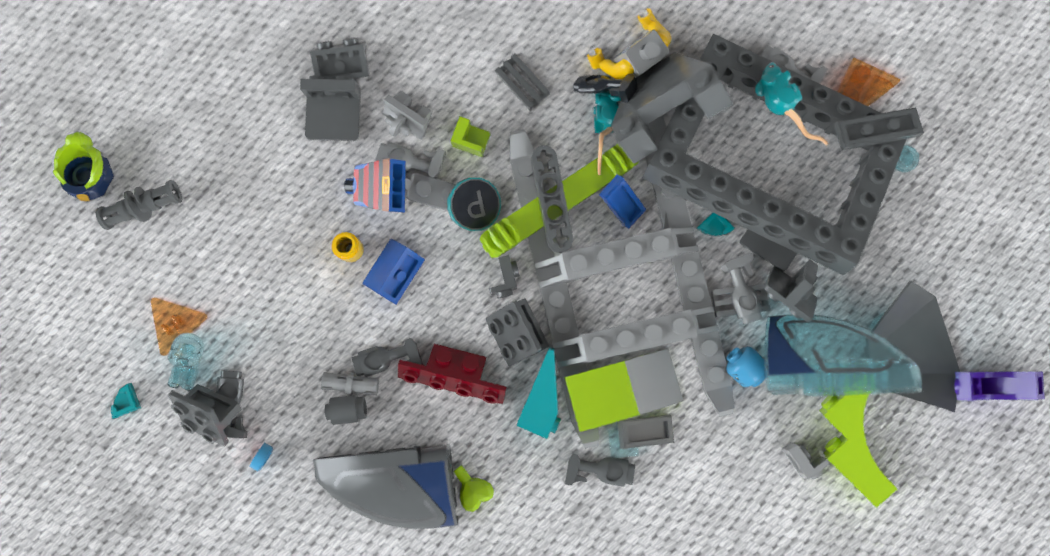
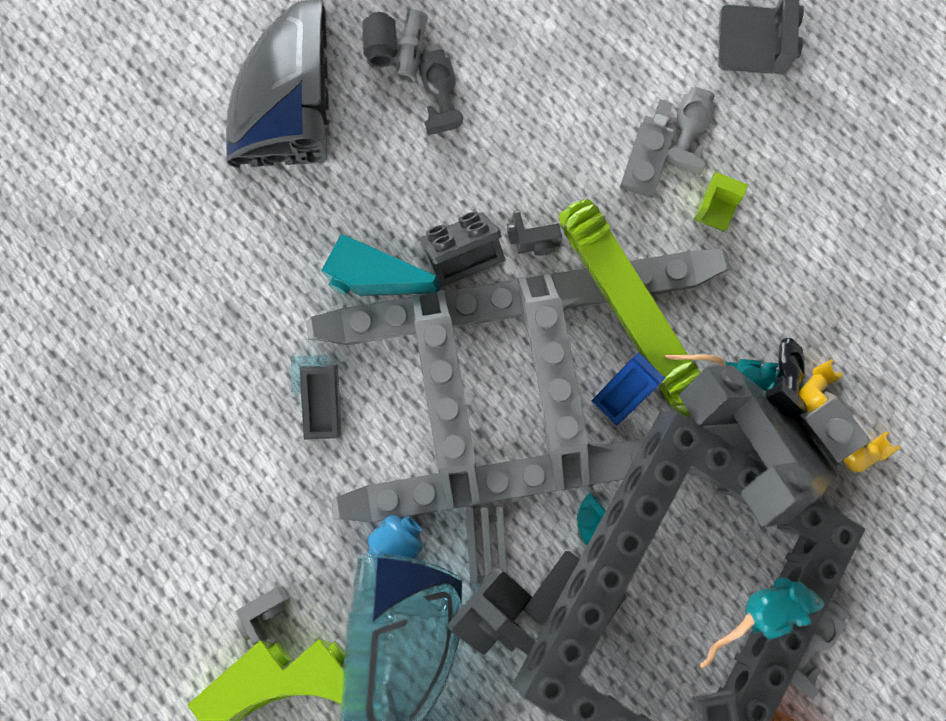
camera: 90 degrees right, 5 degrees down
(340, 60) = (823, 48): dark grey bracket -> none
(340, 243) = (581, 45): yellow brick -> none
(379, 185) = (658, 85): torso -> none
(393, 271) = (547, 103): blue panel -> none
(403, 118) = (744, 119): light grey hips -> none
(454, 372) = (417, 169): dark red bracket -> none
(473, 490) = (268, 185): lime rock -> none
(474, 204) = (631, 200): black tile -> none
(507, 65) = (816, 256): dark grey tile -> none
(551, 199) = (632, 284): dark grey beam -> none
(608, 470) = (275, 353): dark grey piece -> none
(623, 390) = (377, 376): slope -> none
(744, 297) = (489, 547): light grey piece -> none

